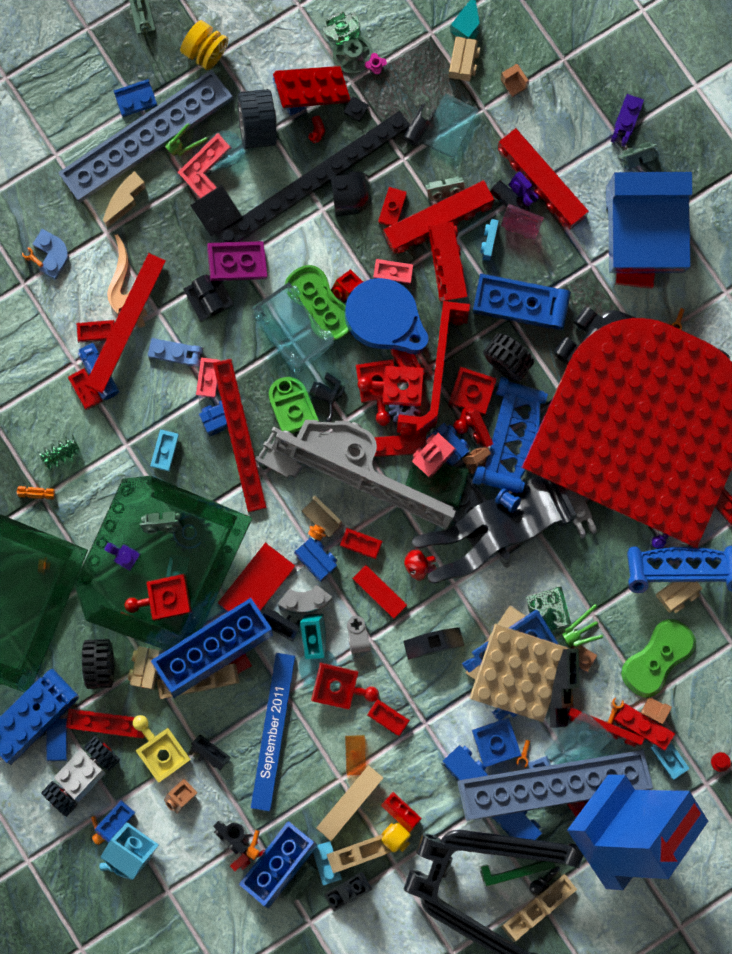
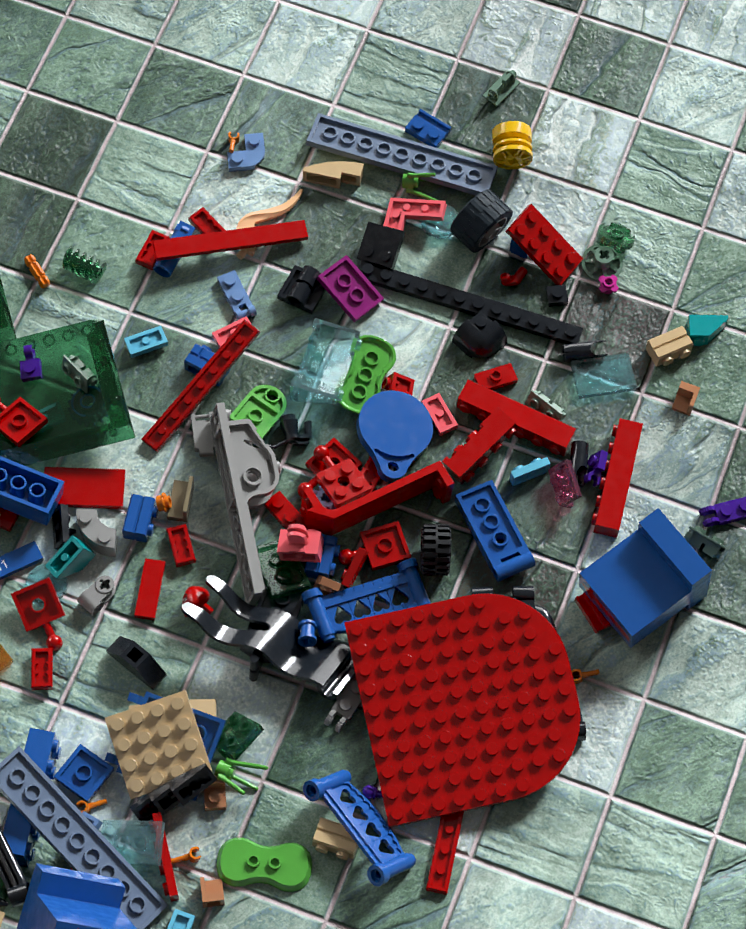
camera: 50 degrees right, 15 degrees down
(644, 727) = (189, 891): red plate -> none

